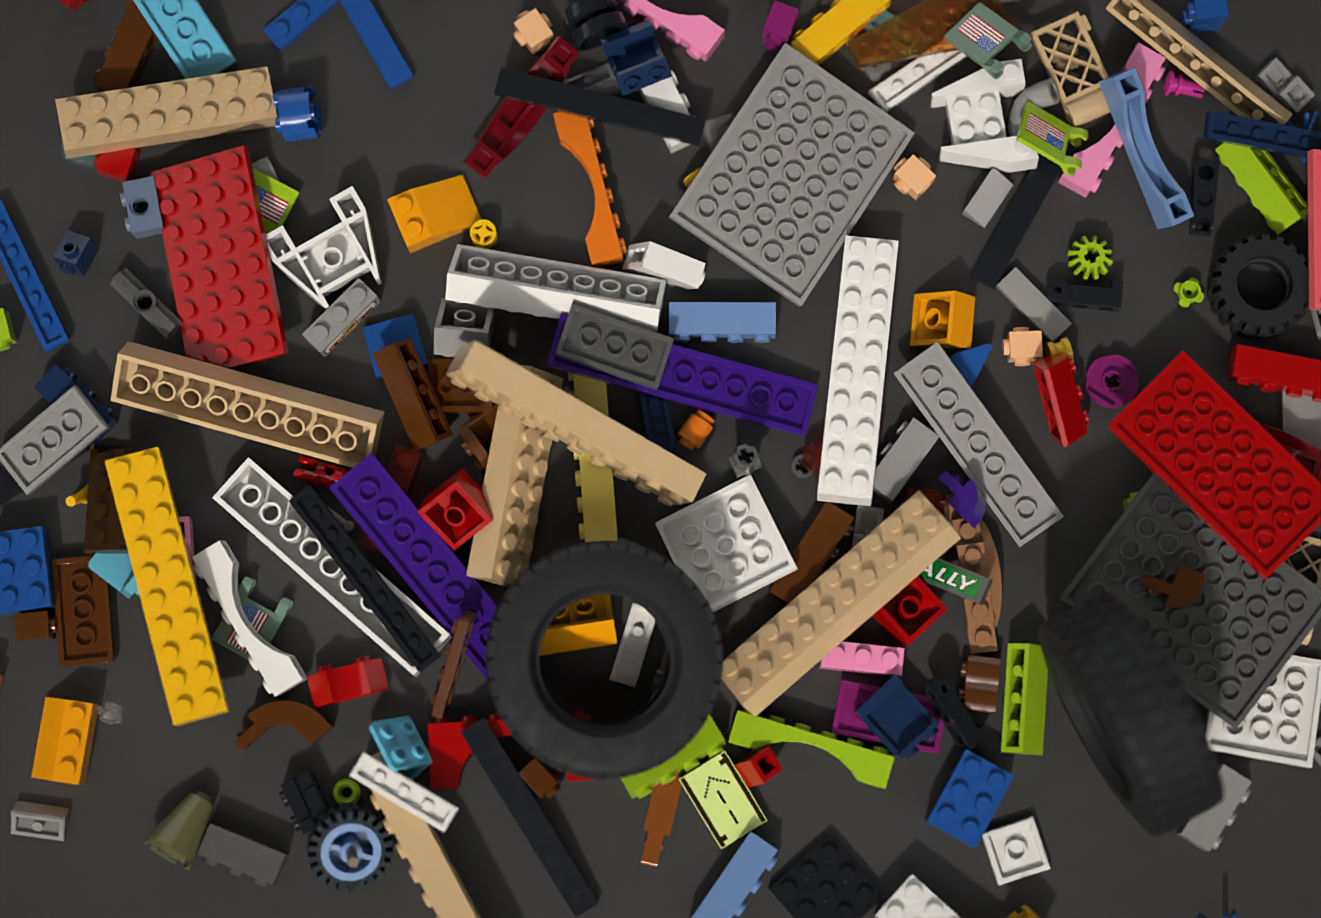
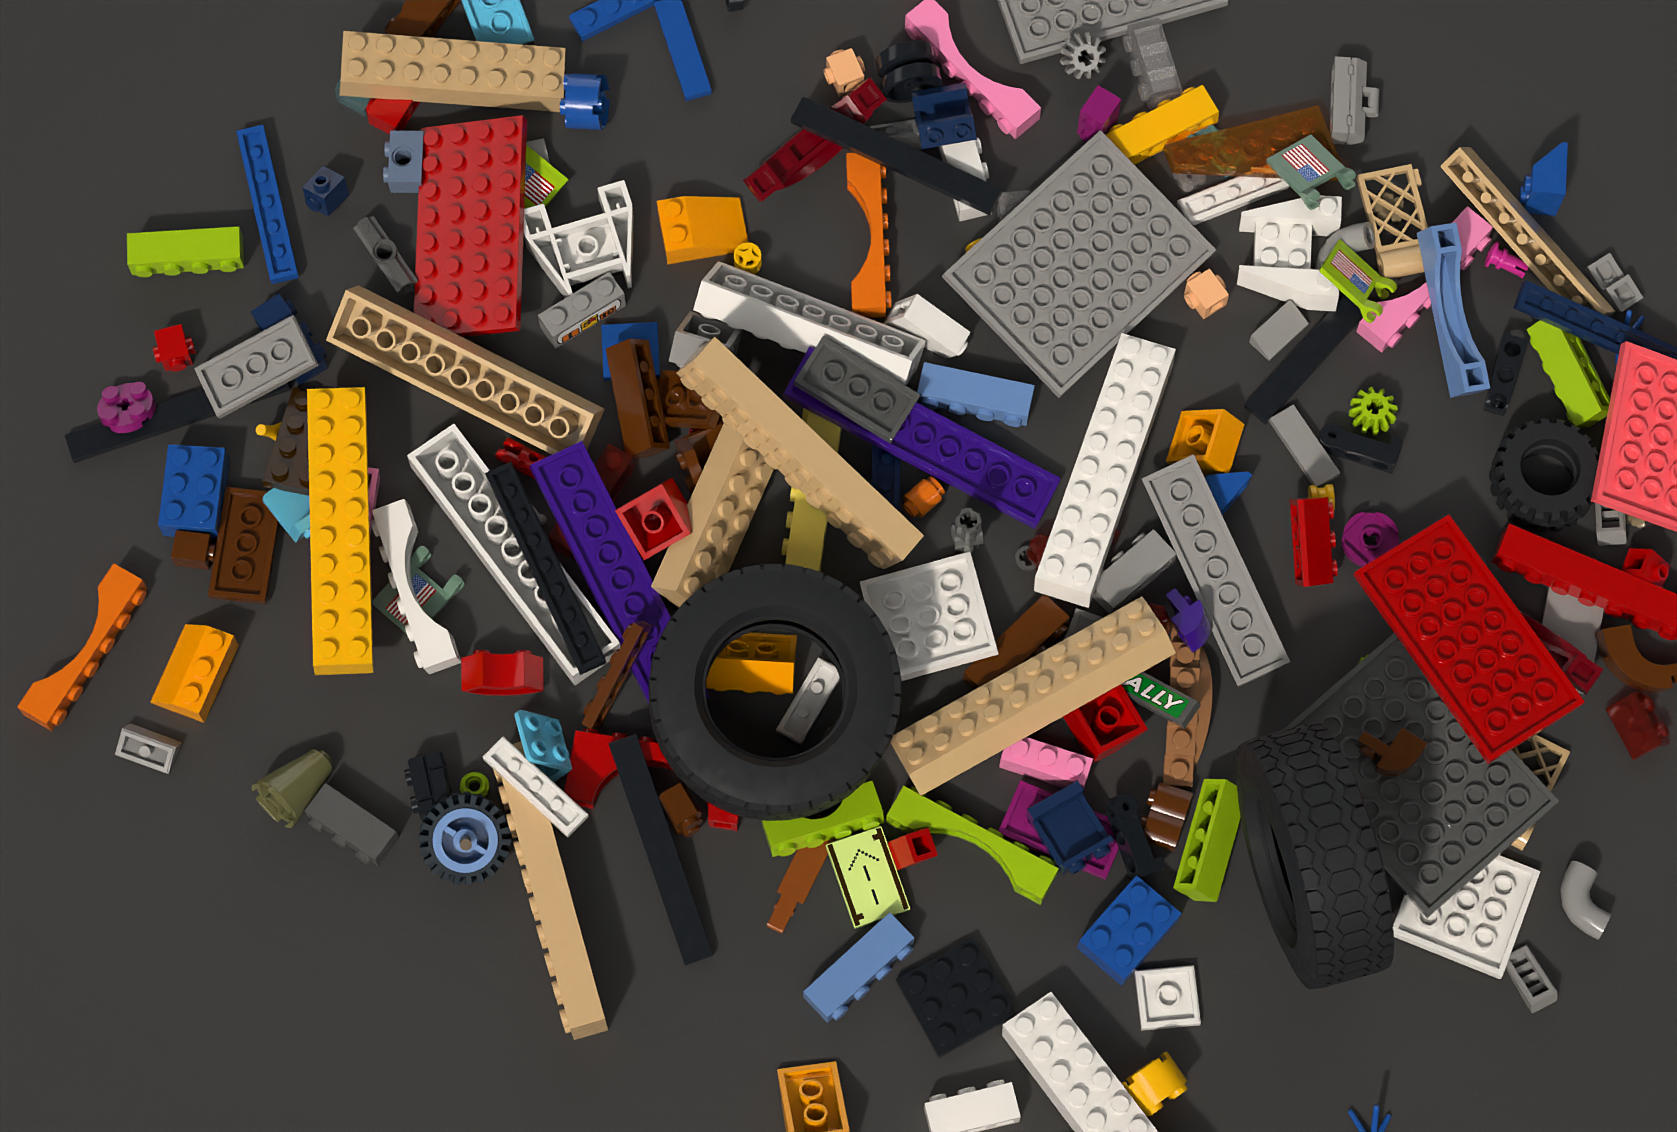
camera: 10 degrees right, 10 degrees down
(109, 712) = (248, 652): clear plate -> none
(299, 716) = (429, 692): reddish brown arch -> none
(1023, 346) = (1283, 483): light nougat brick -> none
(1196, 294) = (1473, 460): lime plate -> none
(1206, 828) = (1390, 997): light grey brick -> none

